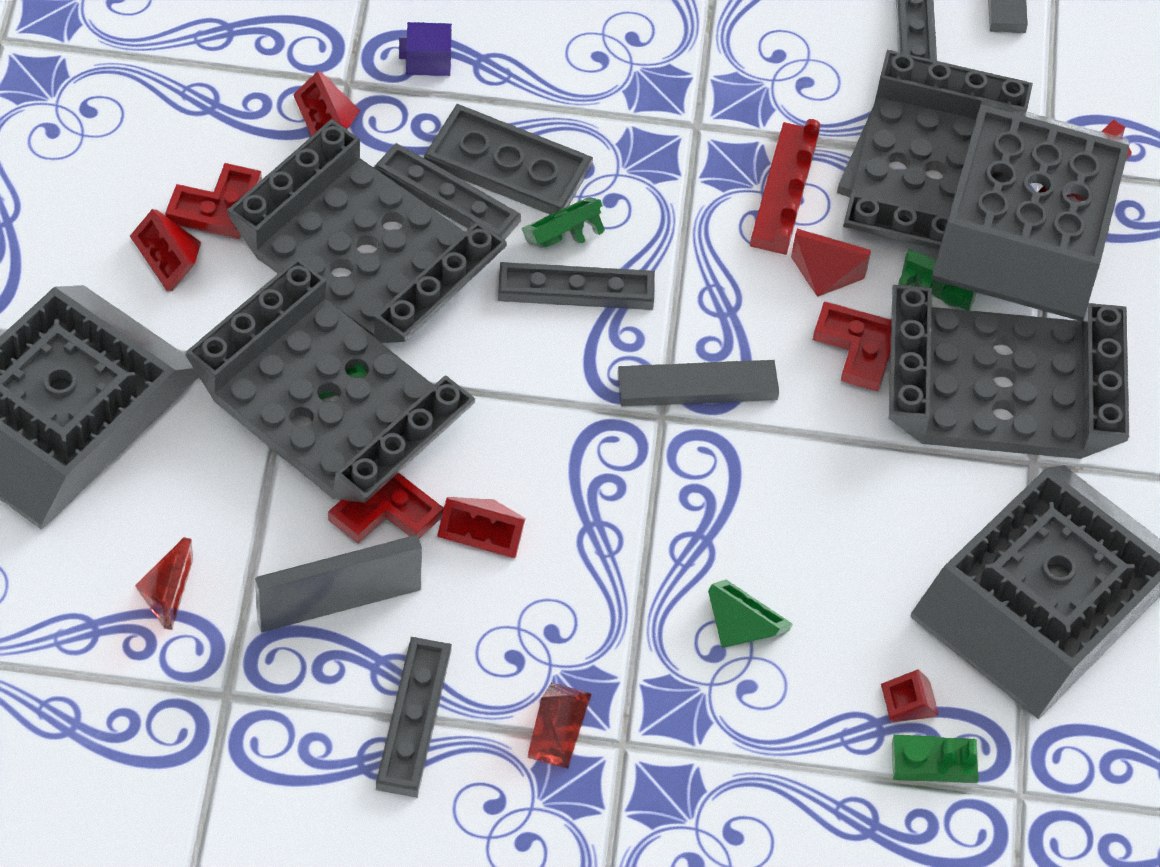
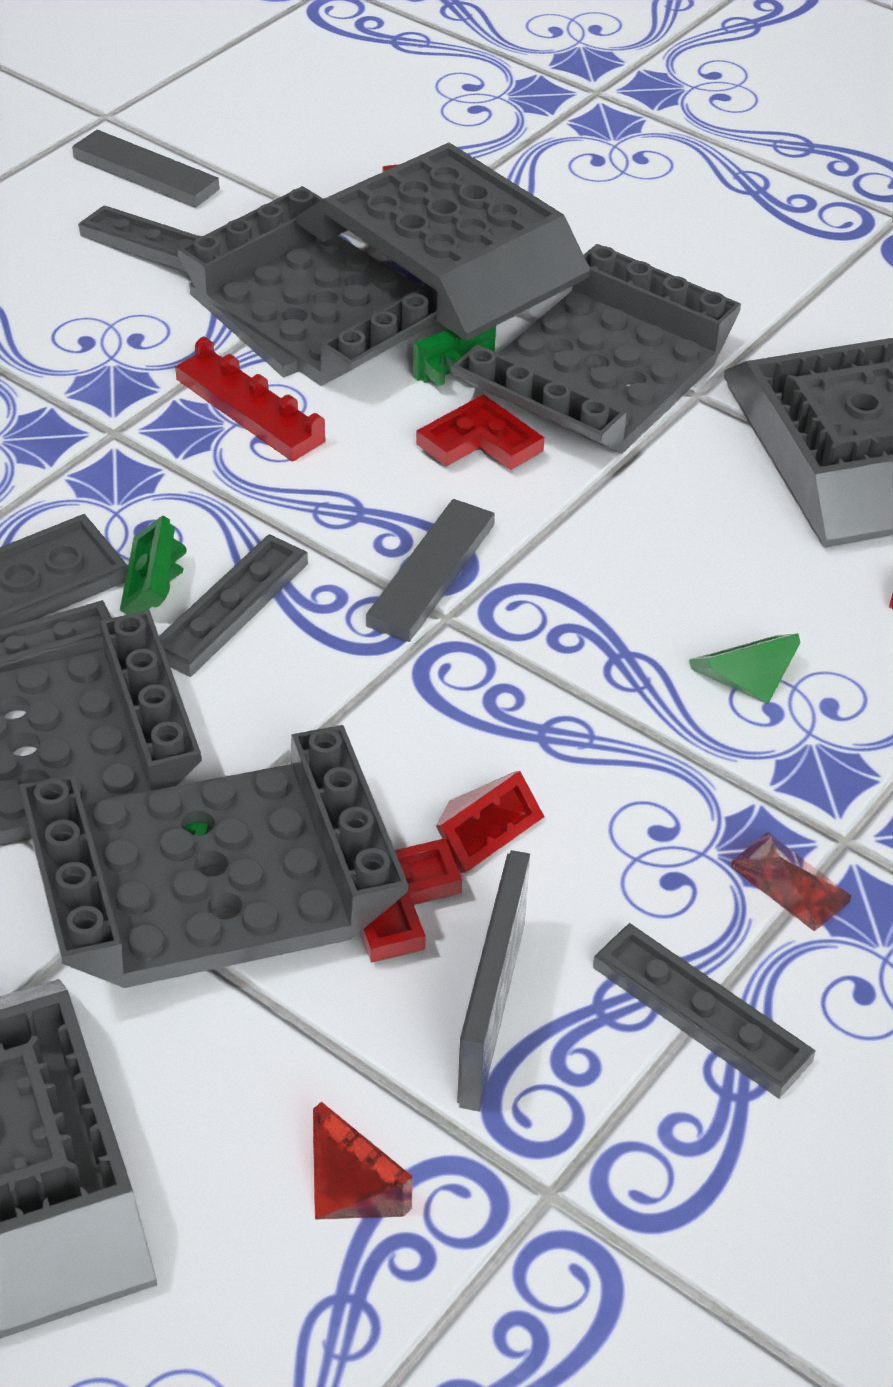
camera: 55 degrees left, 10 degrees down
(828, 262) = (365, 411): red slope -> none

